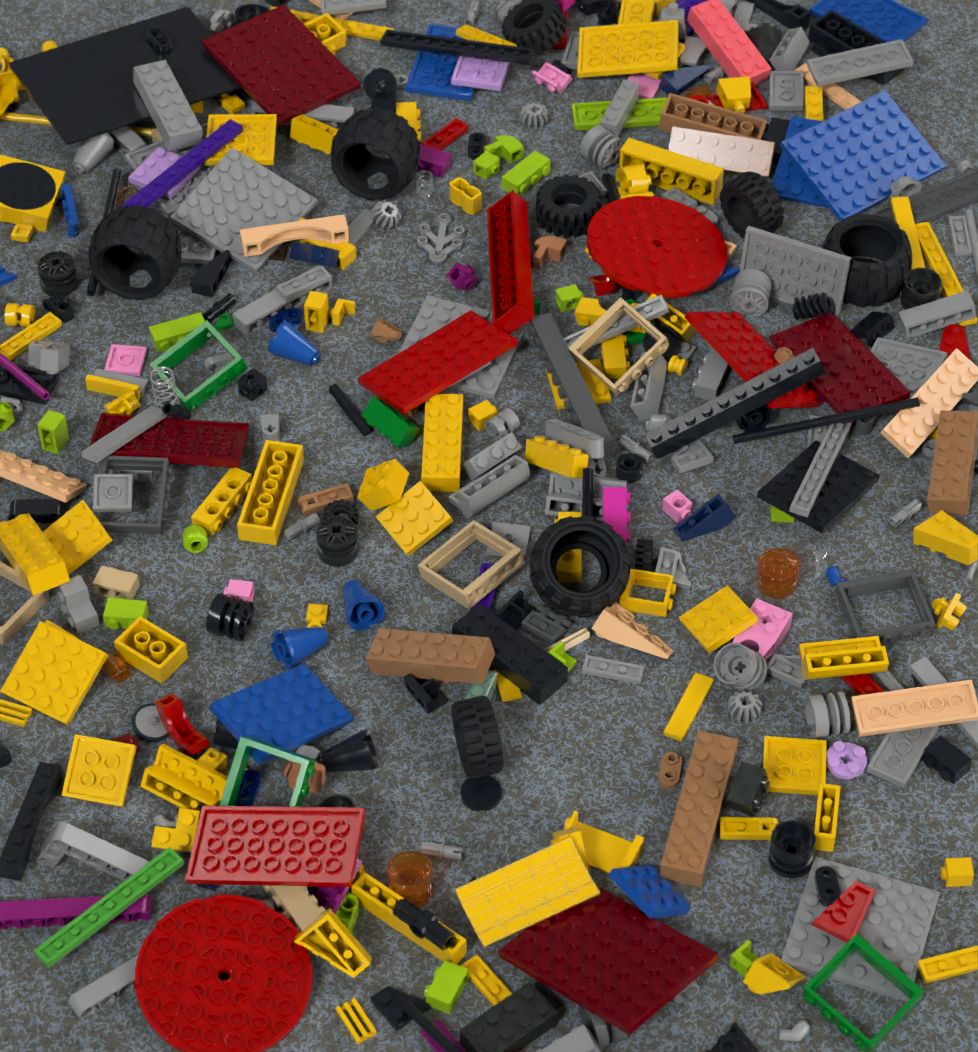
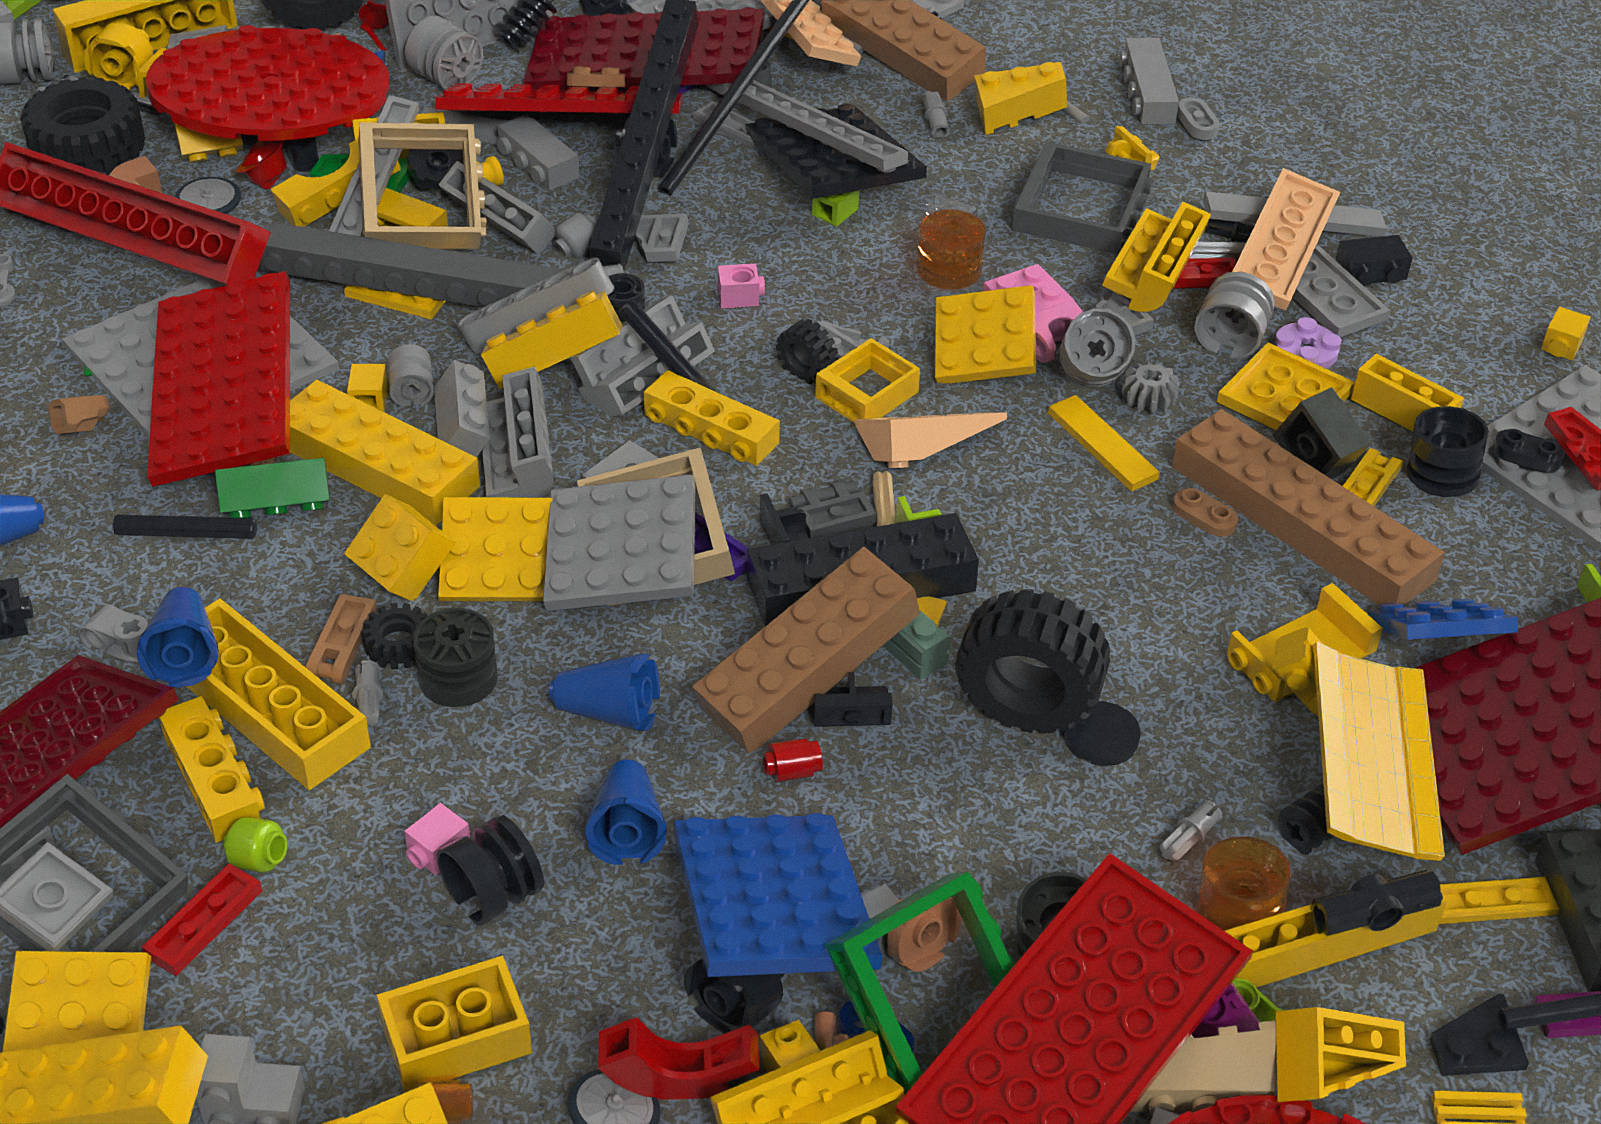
camera: 60 degrees left, 5 degrees down
(115, 583) = (246, 1005): tan brick -> none
(123, 612) = (328, 1027): lime brick -> none
(149, 546) = (202, 919): none -> red plate
(261, 444) = (178, 640): none -> blue cone
(316, 615) = (573, 764): yellow plate -> none
(350, 754) = (922, 841): black cone -> none
(373, 687) = (792, 759): none -> red brick
(444, 556) = (621, 543): none -> light grey plate
(447, 986) = (1481, 951): lime brick -> none
(462, 276) = (69, 282): magenta brick -> none
(568, 276) = (211, 193): none -> light grey wheel
(568, 297) = (248, 204): lime brick -> none
(587, 535) = (826, 364): black tyre -> none
(613, 669) = (973, 483): light grey tile -> none
(615, 510) = (715, 339): dark pink brick -> none
(706, 519) = (788, 270): dark blue slope -> none
(834, 576) = (993, 217): blue arm -> none

